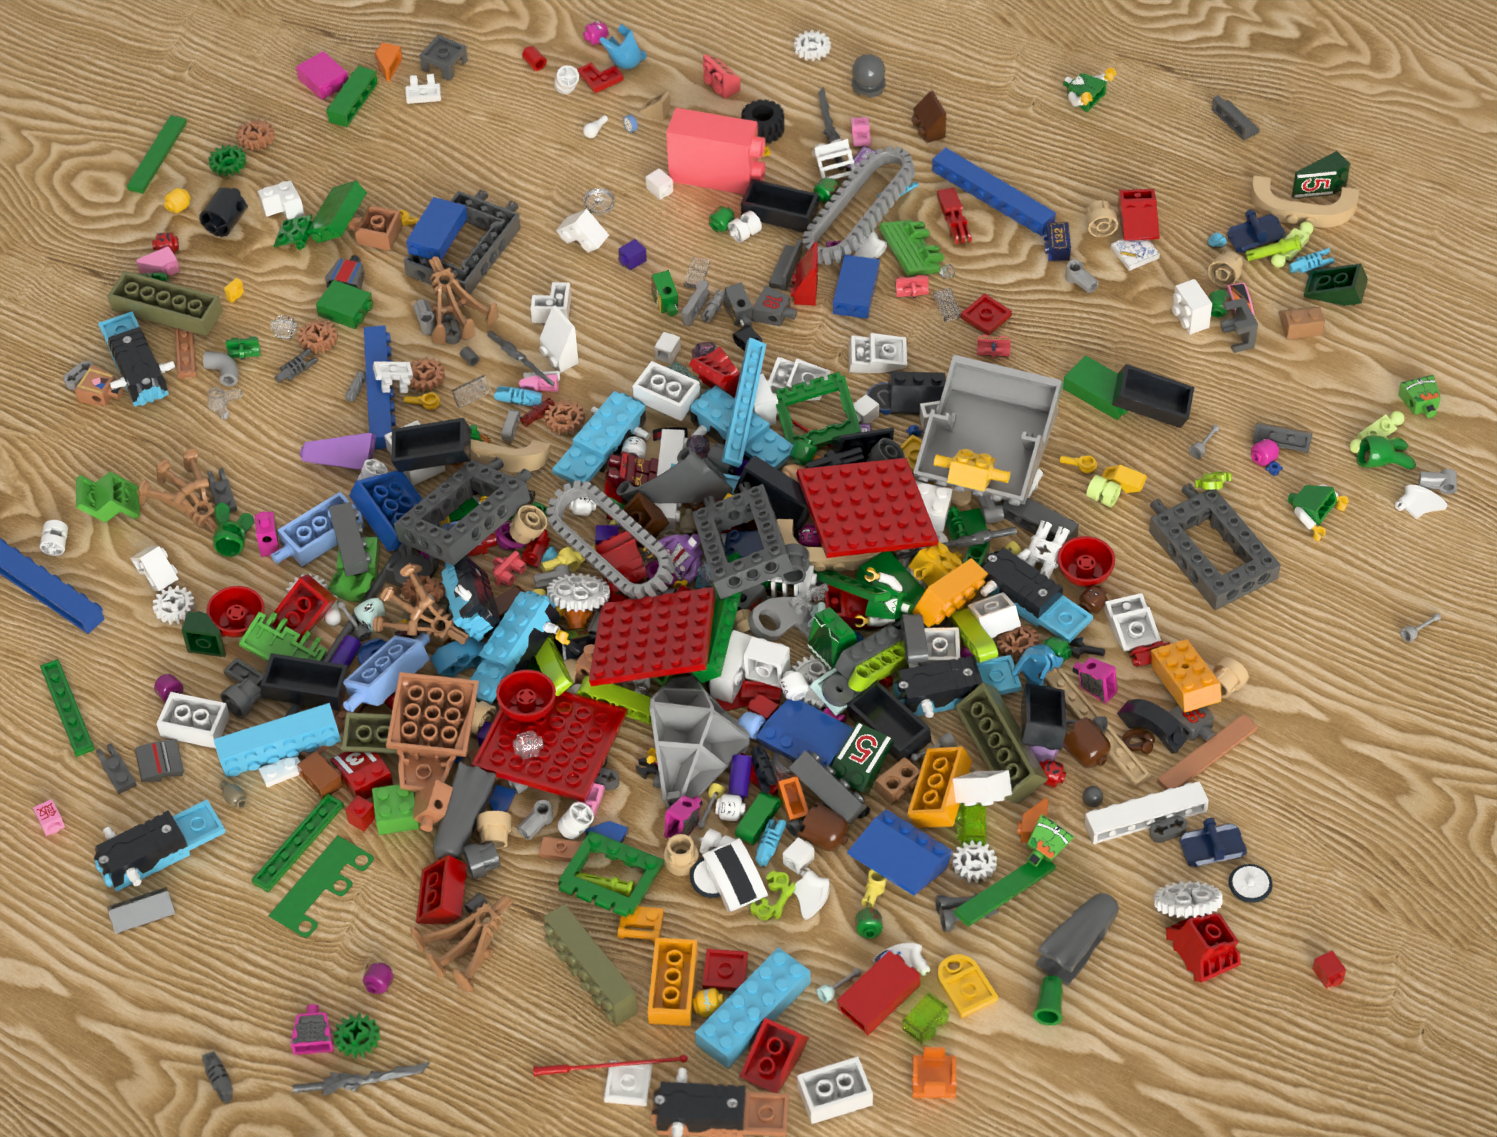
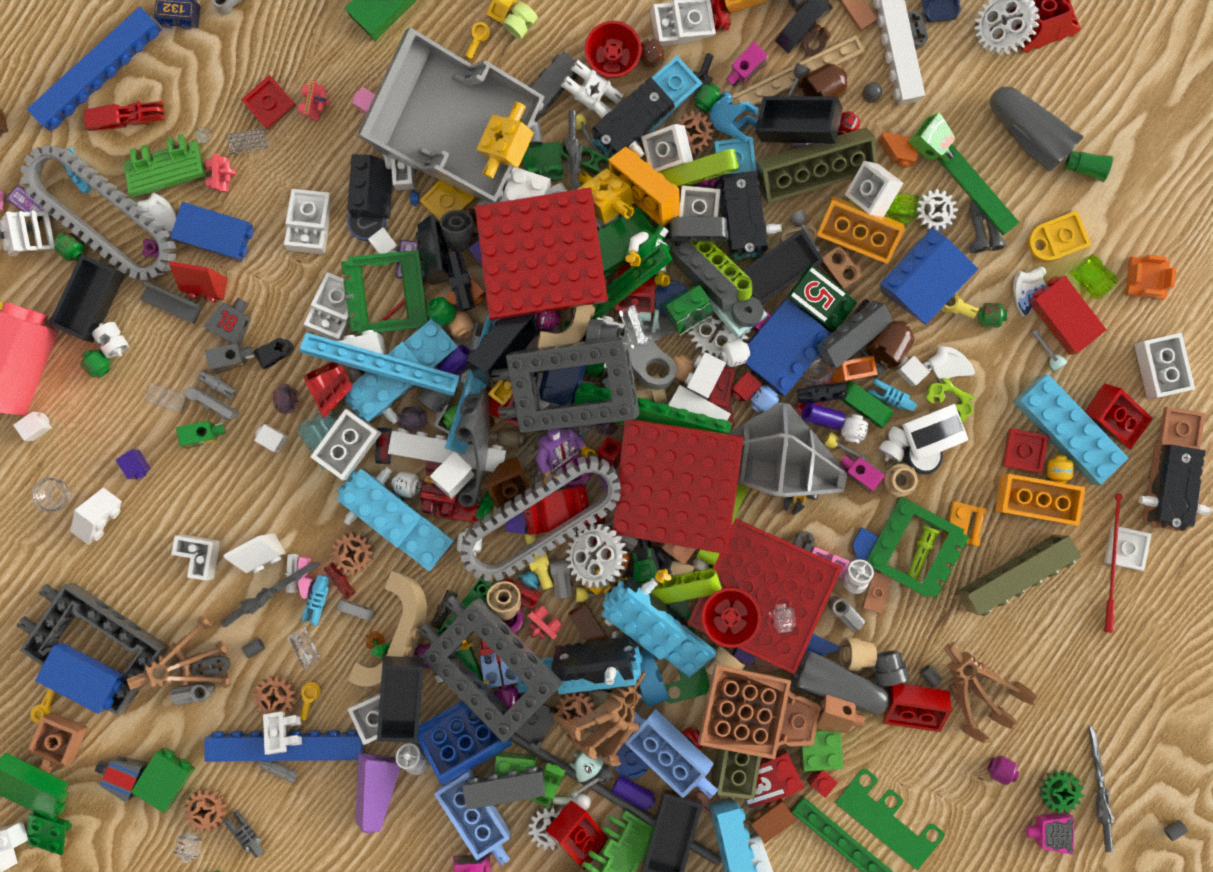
camera: 90 degrees left, 35 degrees up
(643, 467) = (452, 475): none -> white piece

